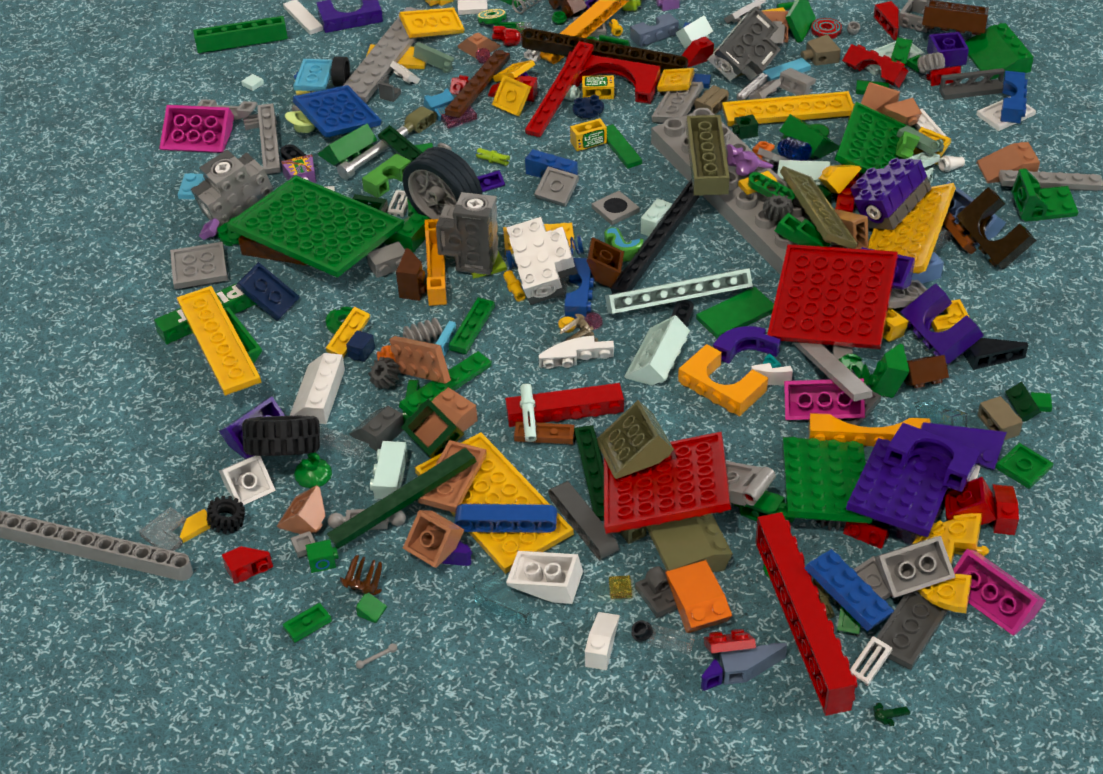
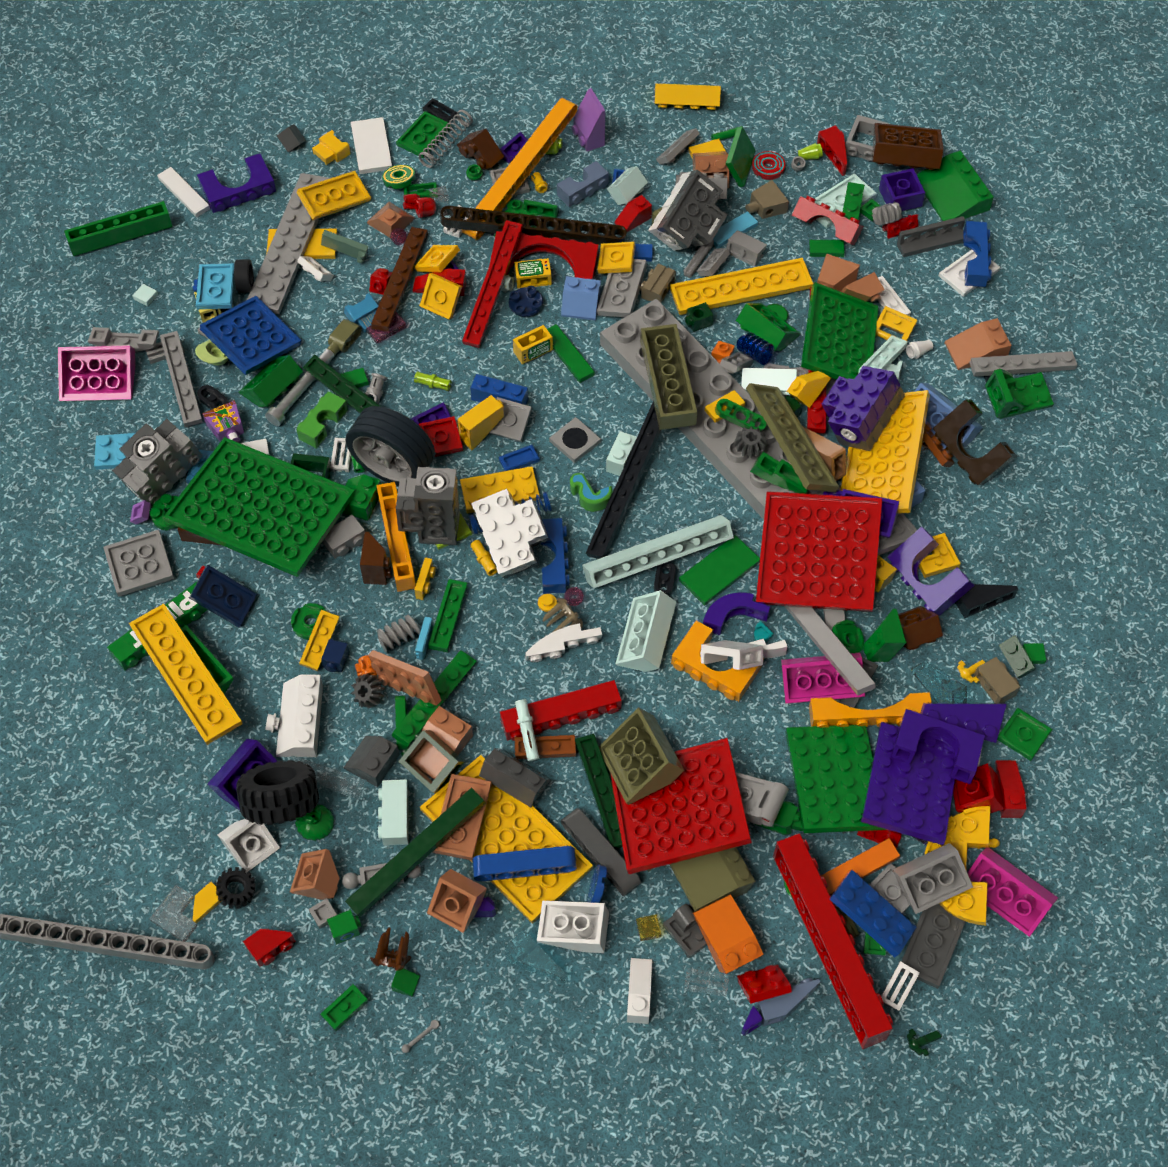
camera: 10 degrees left, 15 degrees up
(290, 392) = (272, 722): none -> white plate
(388, 91) = (301, 297): dark grey panel -> none
(455, 295) = (423, 586): none -> yellow plate
(497, 189) = (443, 435): none -> red plate
(509, 449) = (513, 776): none -> dark grey slope
(528, 183) = (479, 421): none -> yellow slope
(562, 216) = (519, 458): none -> blue tile
(575, 539) = (597, 884): none -> blue tile
(604, 262) = (576, 522): reddish brown slope -> none
(638, 106) = (580, 298): none -> medium blue slope
(641, 631) = (677, 977): black plate -> none
(728, 367) = (743, 654): none -> white panel
(745, 161) = (709, 380): medium lavender animal -> none
(855, 550) = (862, 864): none -> orange tile
(868, 20) = (810, 152): none -> lime cone
(906, 145) = (871, 335): bright green panel -> none
(925, 143) = (886, 325): sand green hinge -> none
(972, 411) = (966, 673): none -> yellow piece

